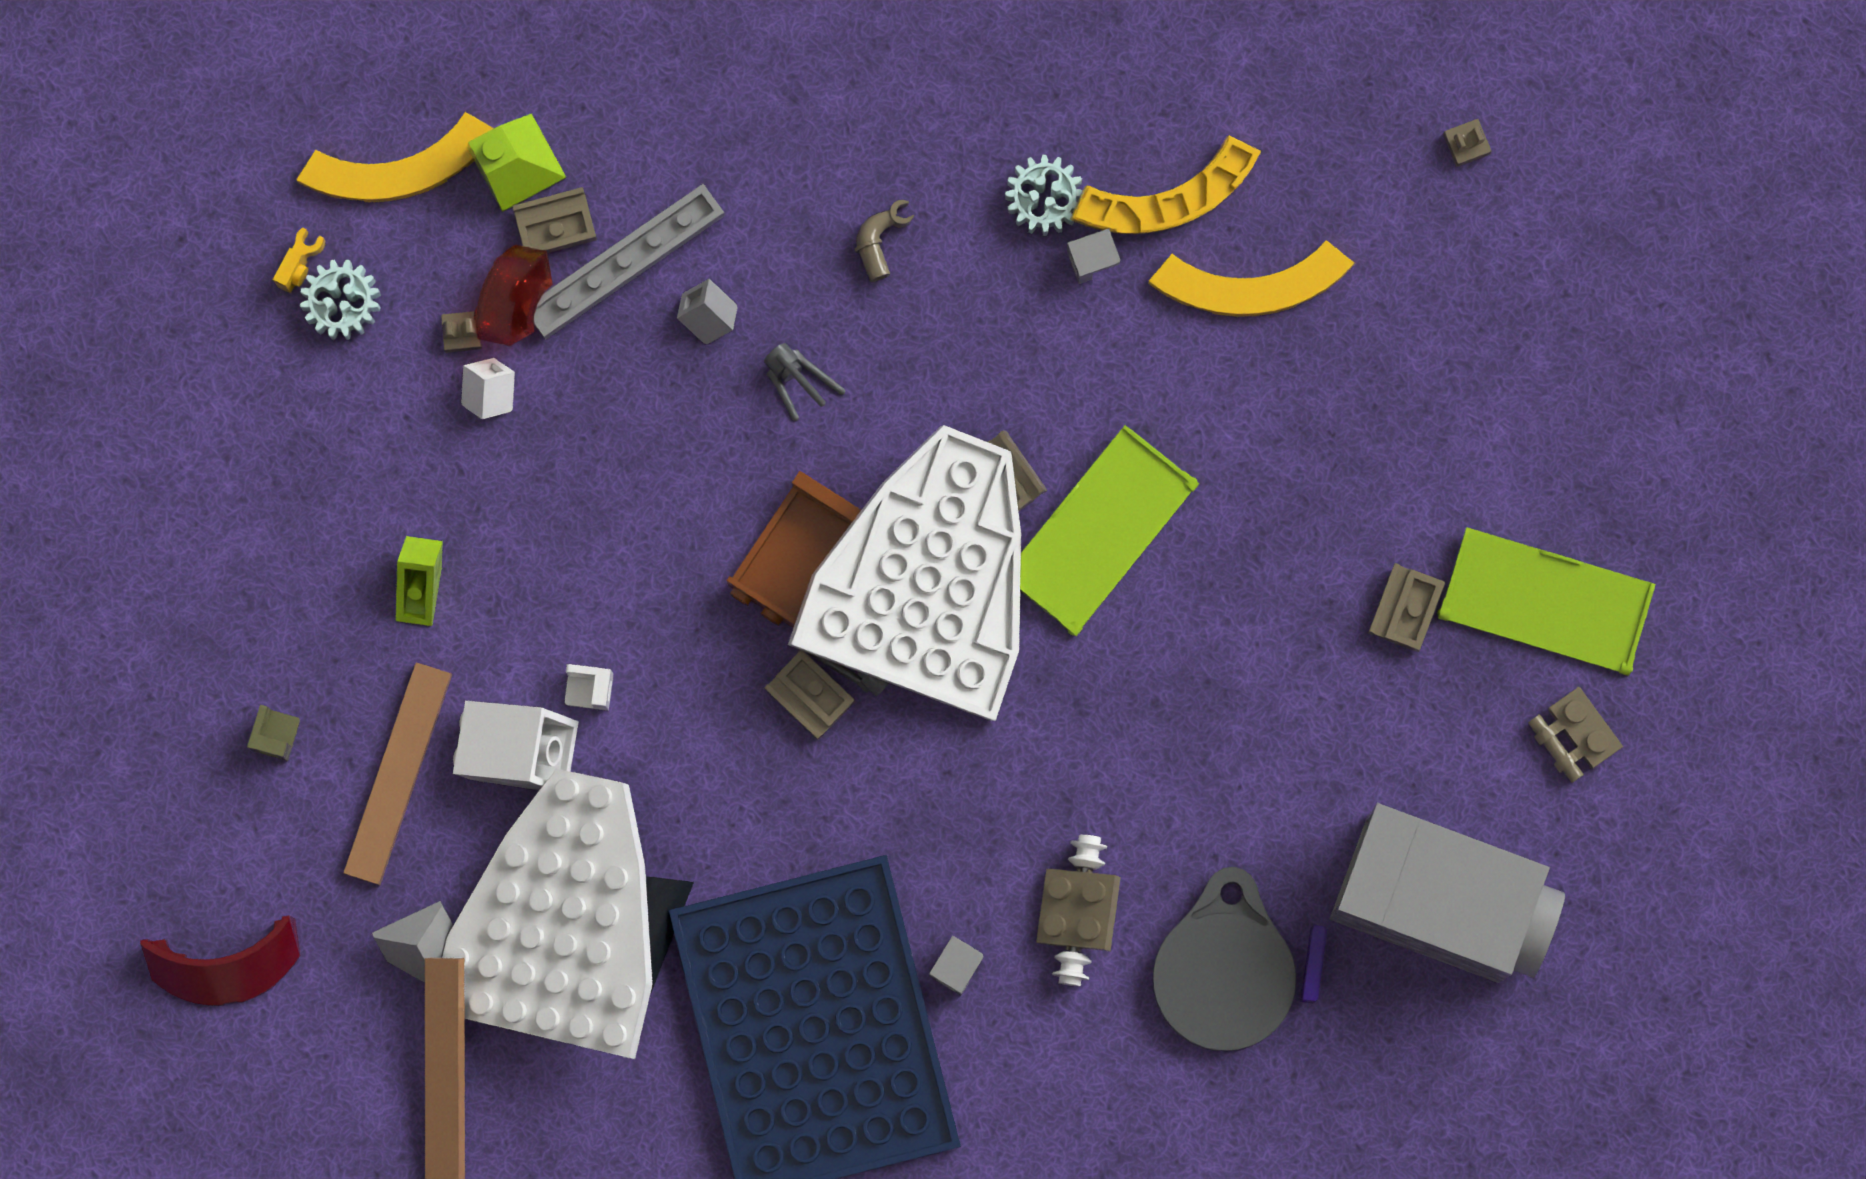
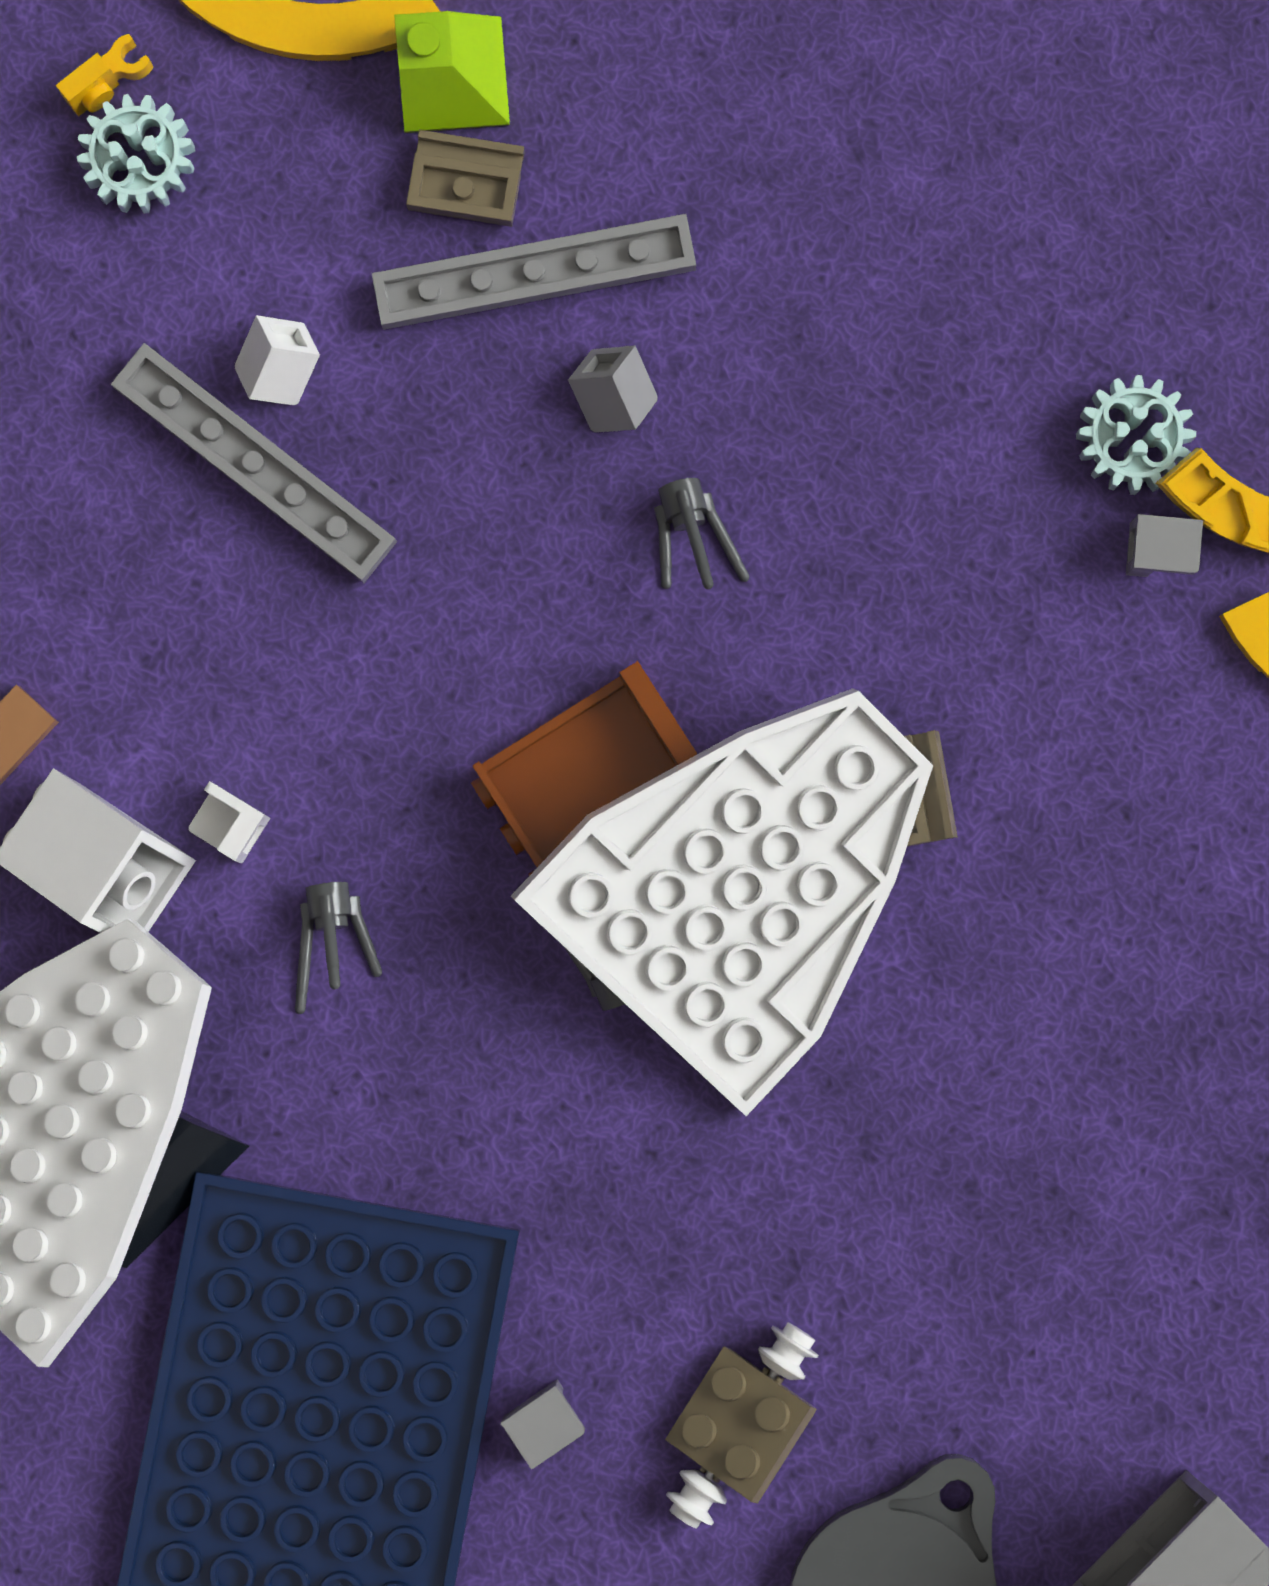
camera: 25 degrees right, 5 degrees up
(418, 580) = (68, 575): lime slope -> none
(460, 332) = (277, 269): dark tan tile -> none
(502, 458) = (254, 463): none -> light grey plate
(512, 295) = (363, 249): clear red brick -> none
(678, 712) = (329, 907): none -> dark grey plant
(809, 694) = (515, 967): dark tan plate -> none
(869, 240) = (872, 391): dark tan piece -> none
(1101, 529) = (1007, 921): lime door -> none

